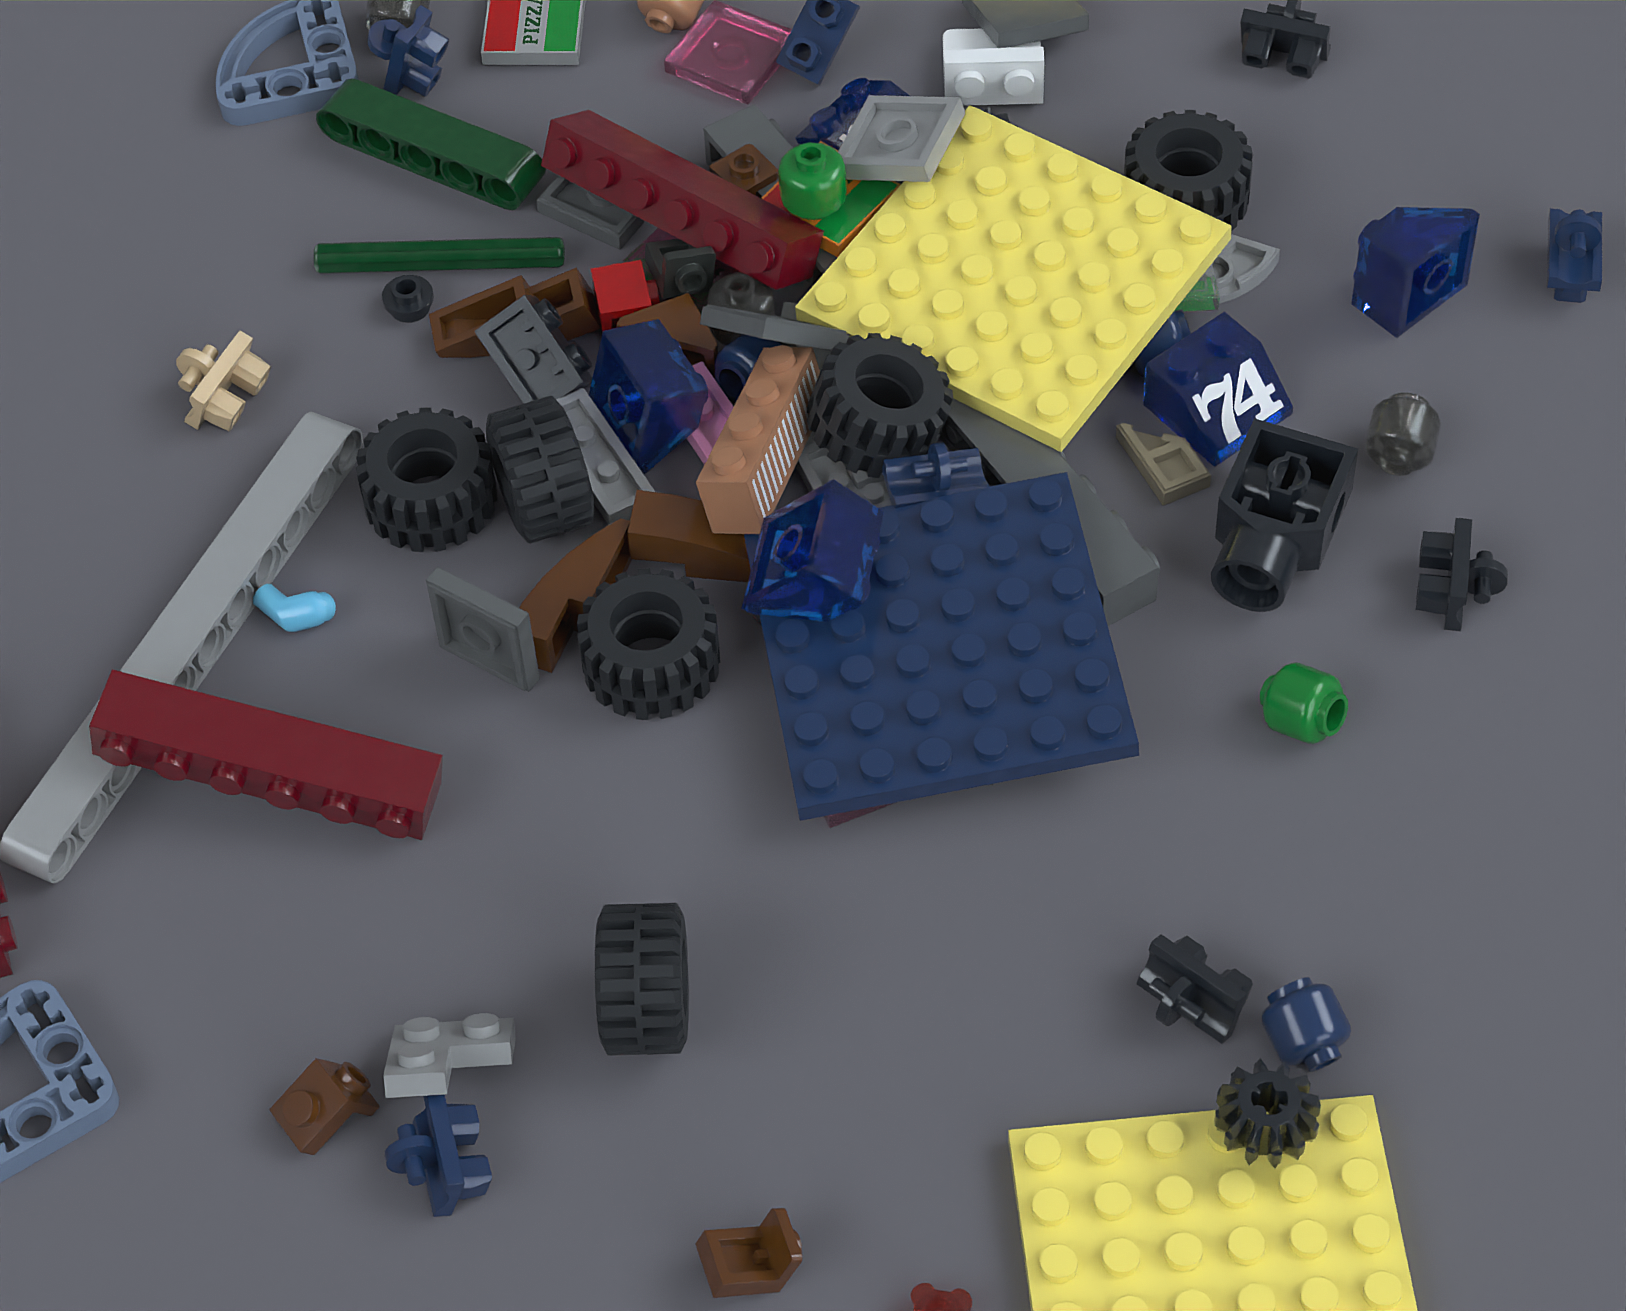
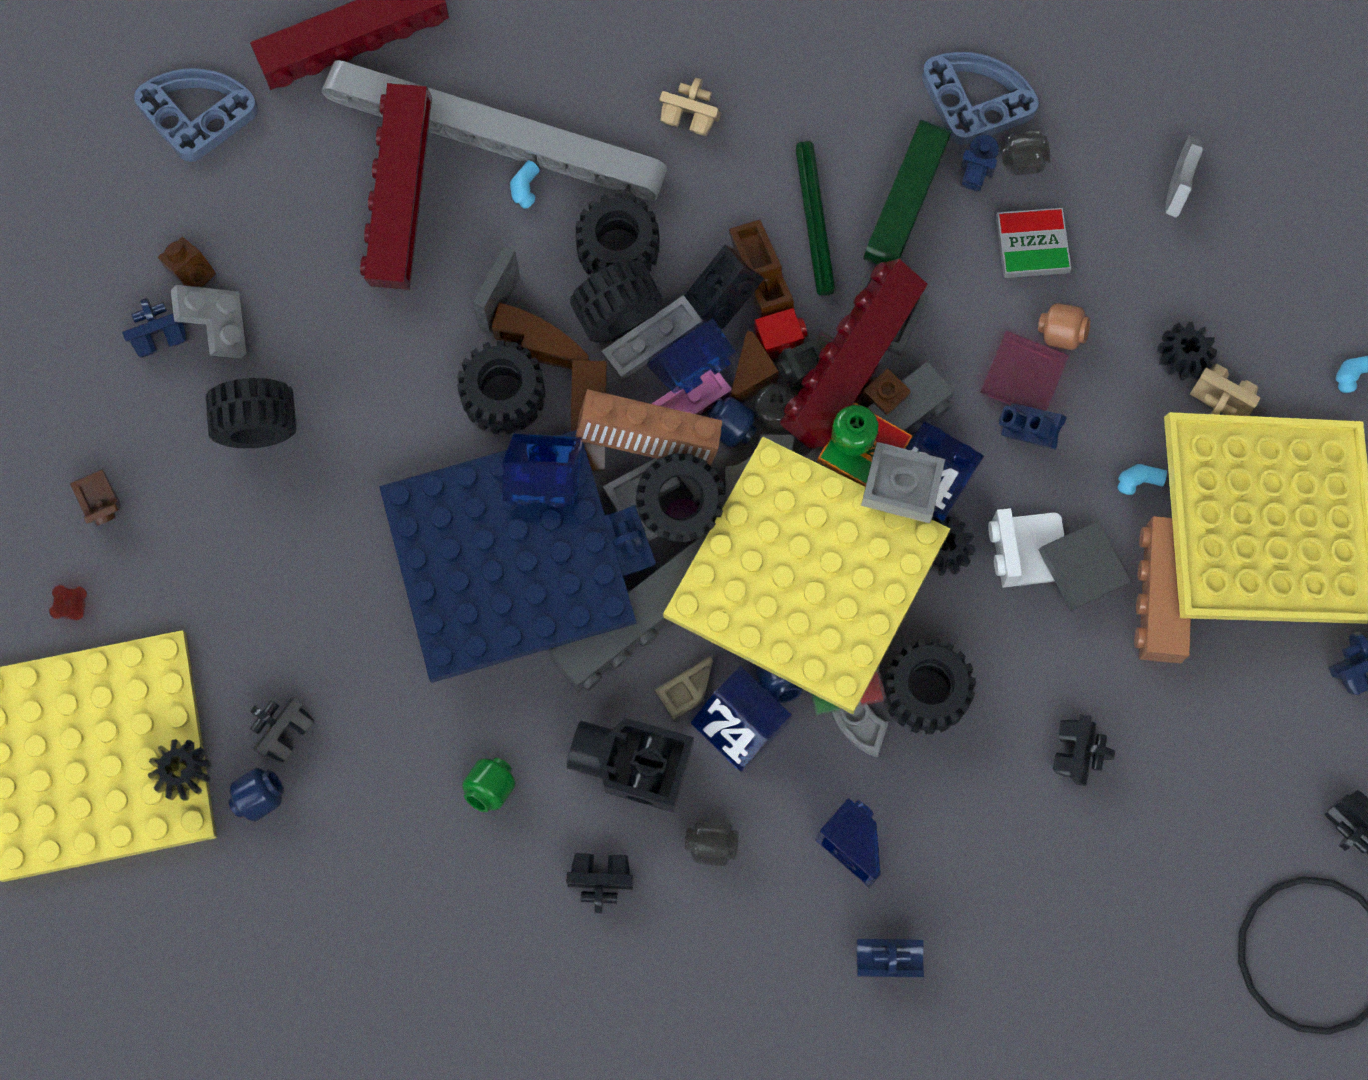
camera: 80 degrees right, 20 degrees up
(408, 298) = (776, 213): black plate -> none
(772, 327) = (732, 424): dark grey tile -> none

